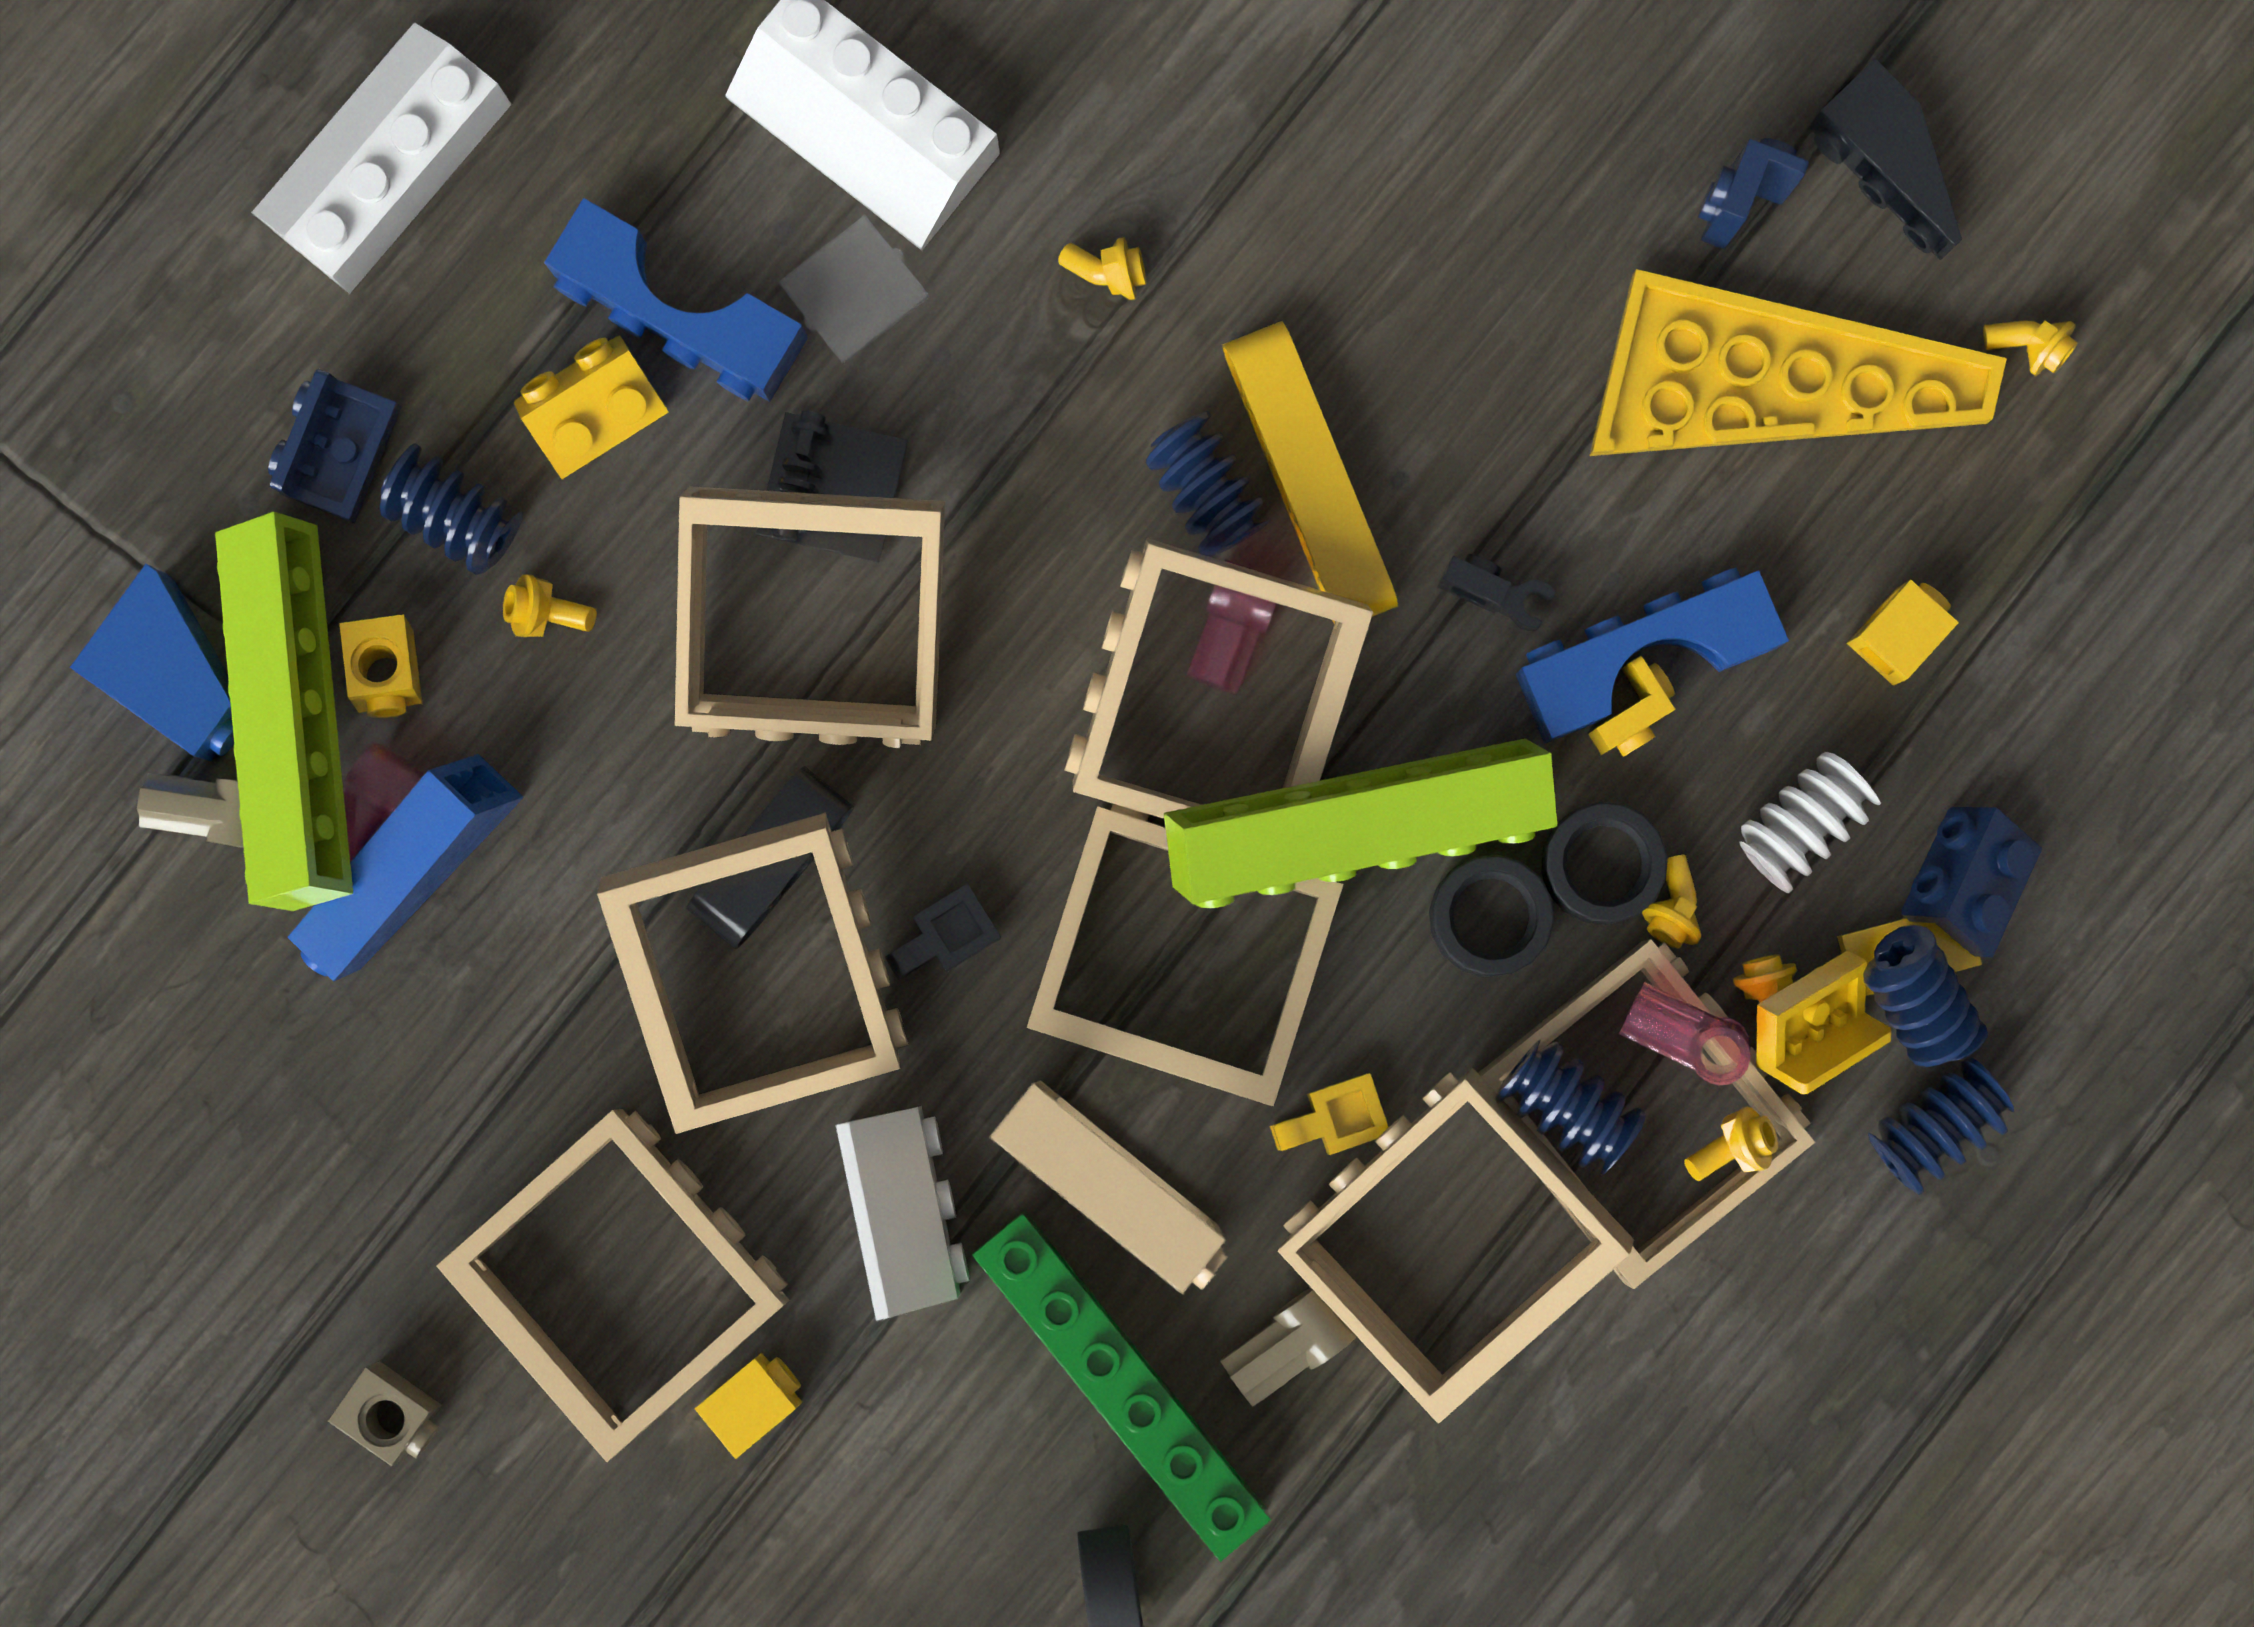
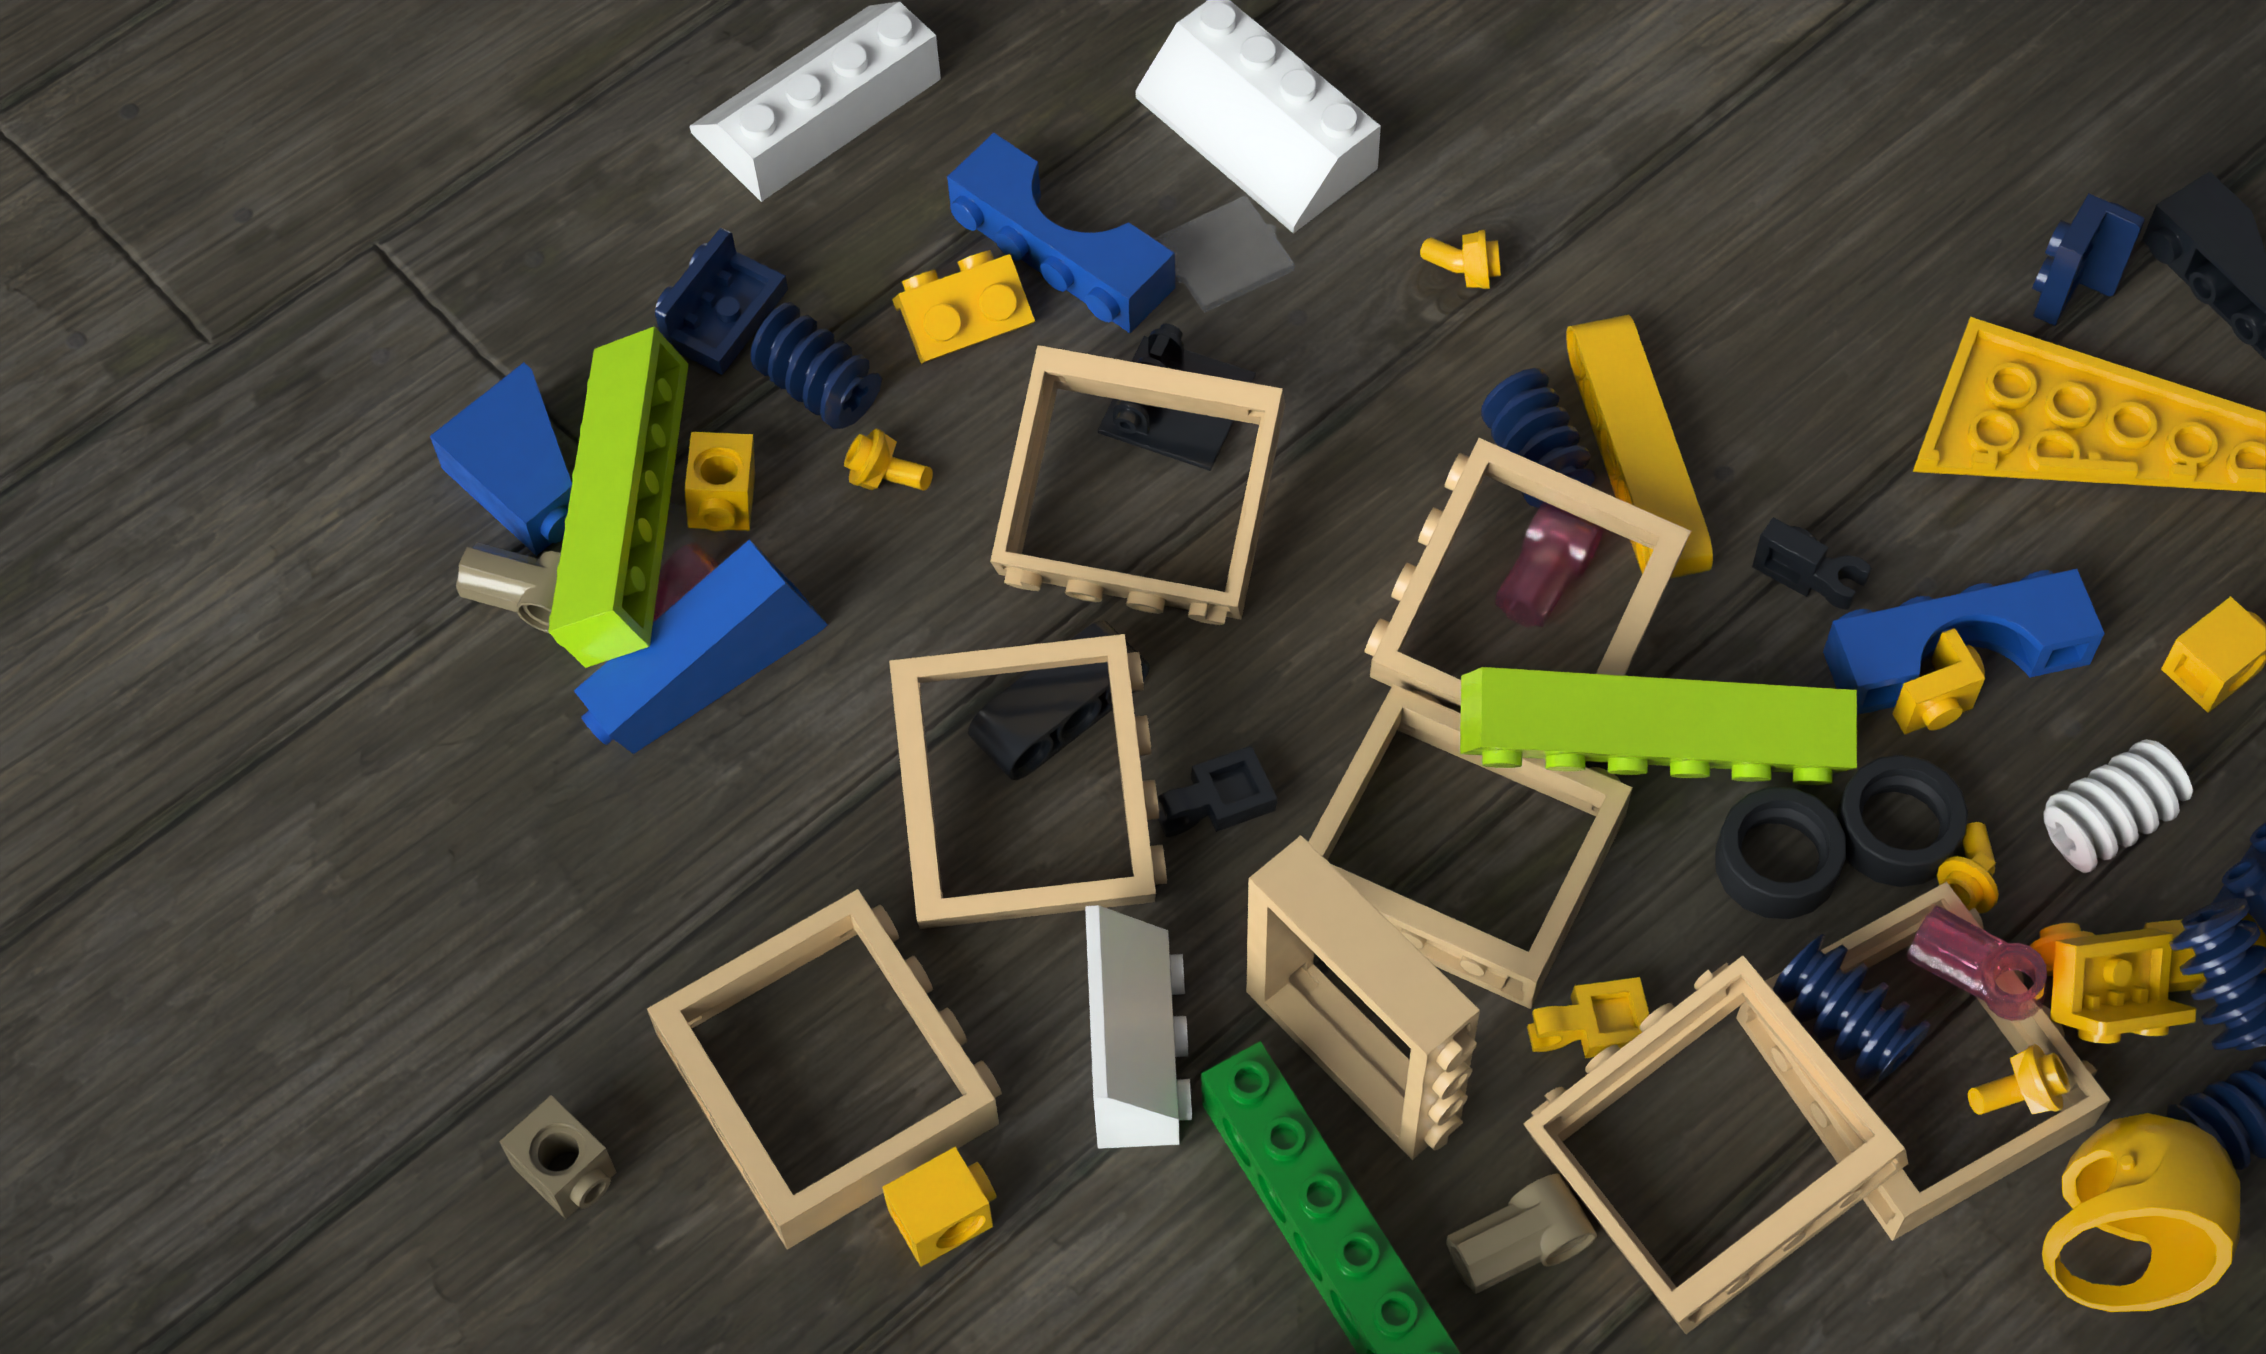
camera: 10 degrees right, 25 degrees down
(1873, 1243) = (2156, 1186): none -> yellow piece

